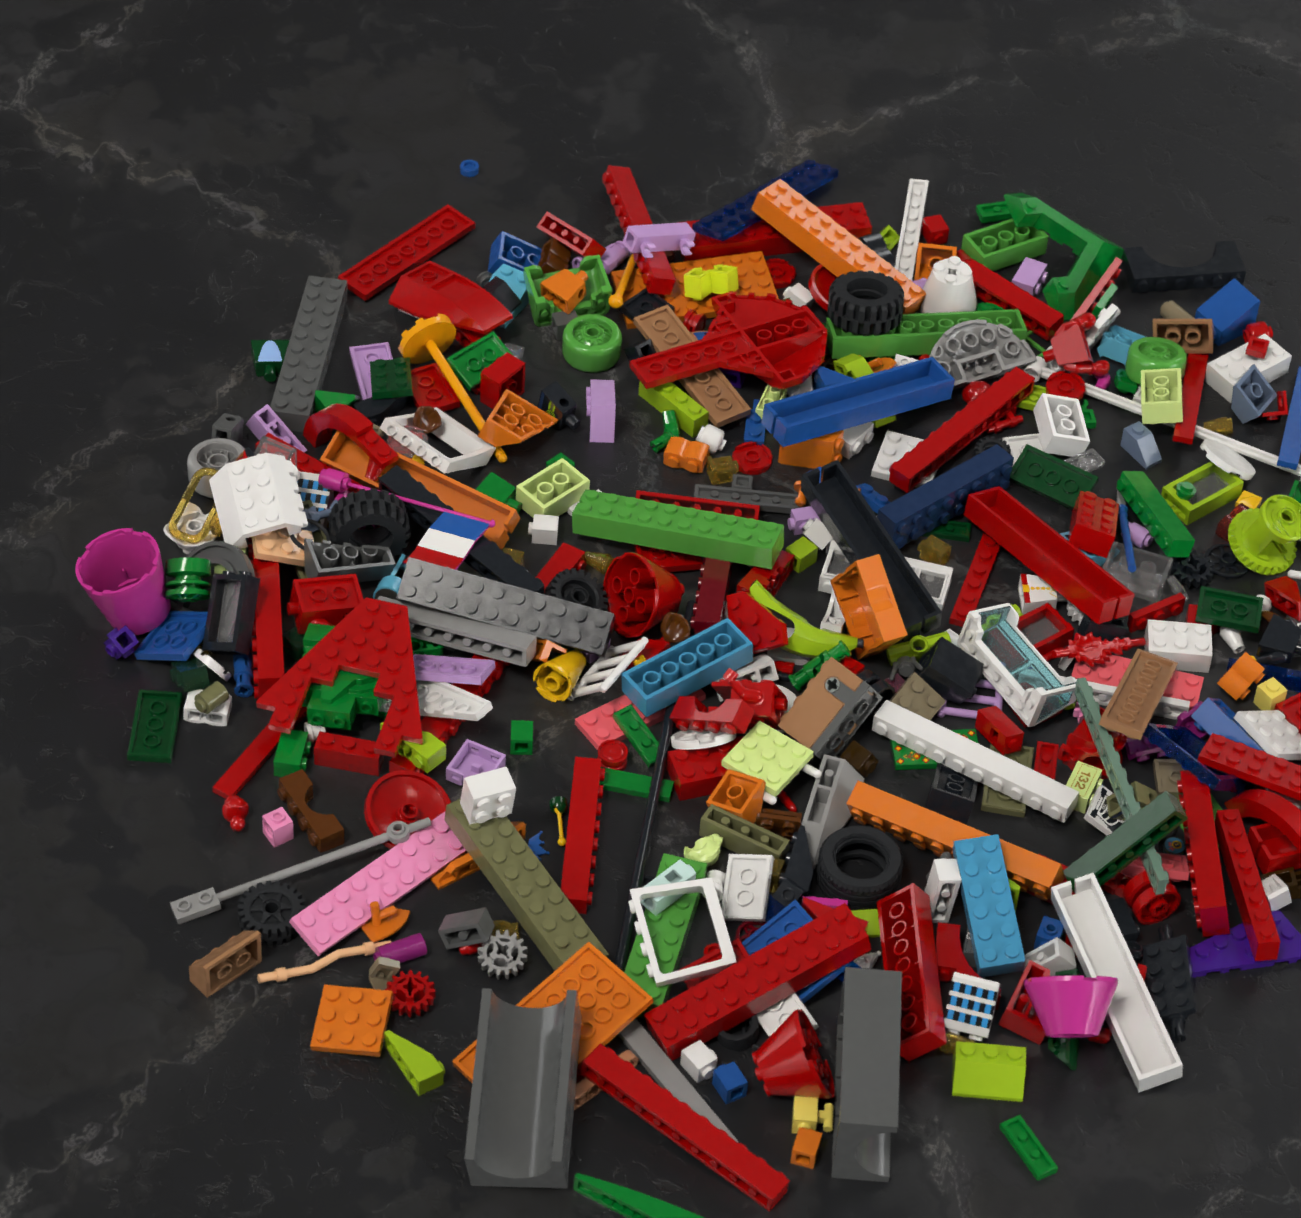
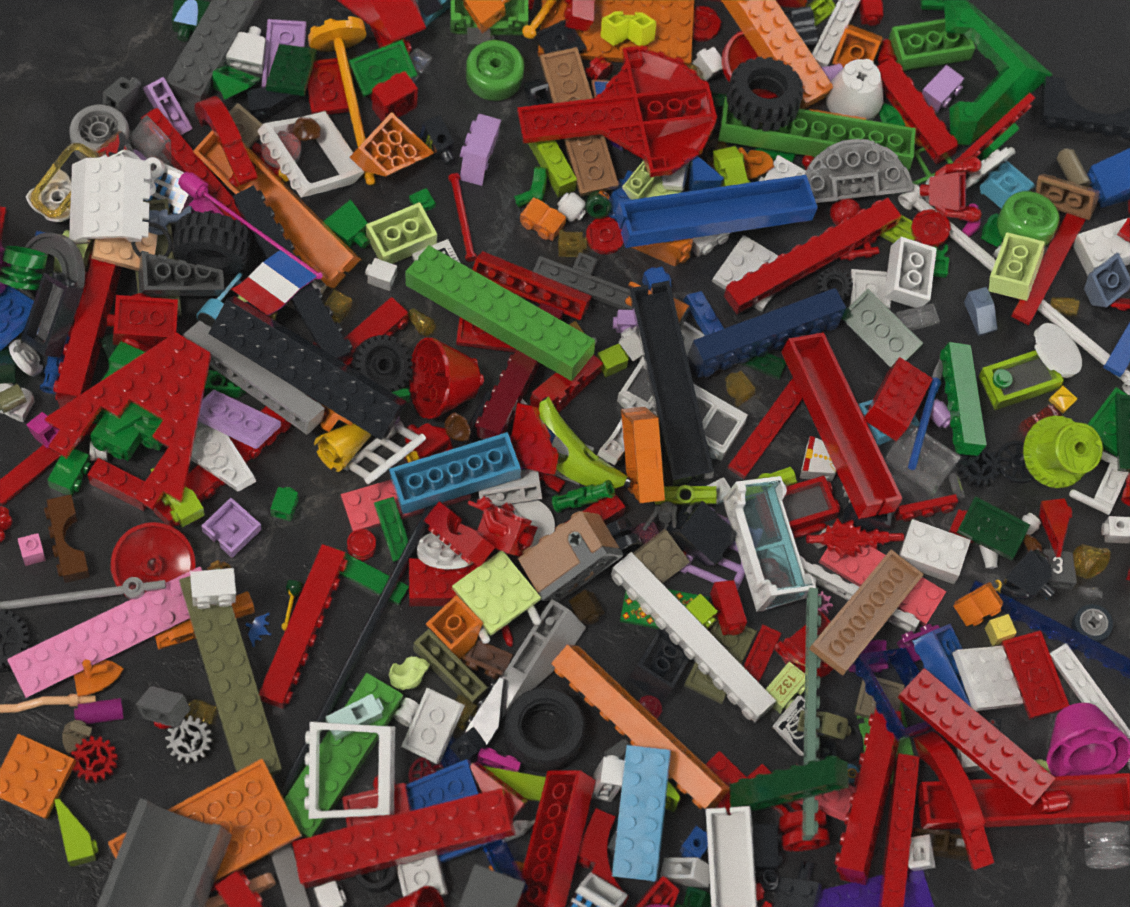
camera: 10 degrees right, 20 degrees up
(253, 722) = (41, 430): none -> dark pink brick
(340, 375) = (247, 51): none -> white torso
(585, 440) = (454, 179): none -> red bar
(743, 434) = (599, 204): none -> dark green head
(976, 733) = (702, 611): none -> lime brick

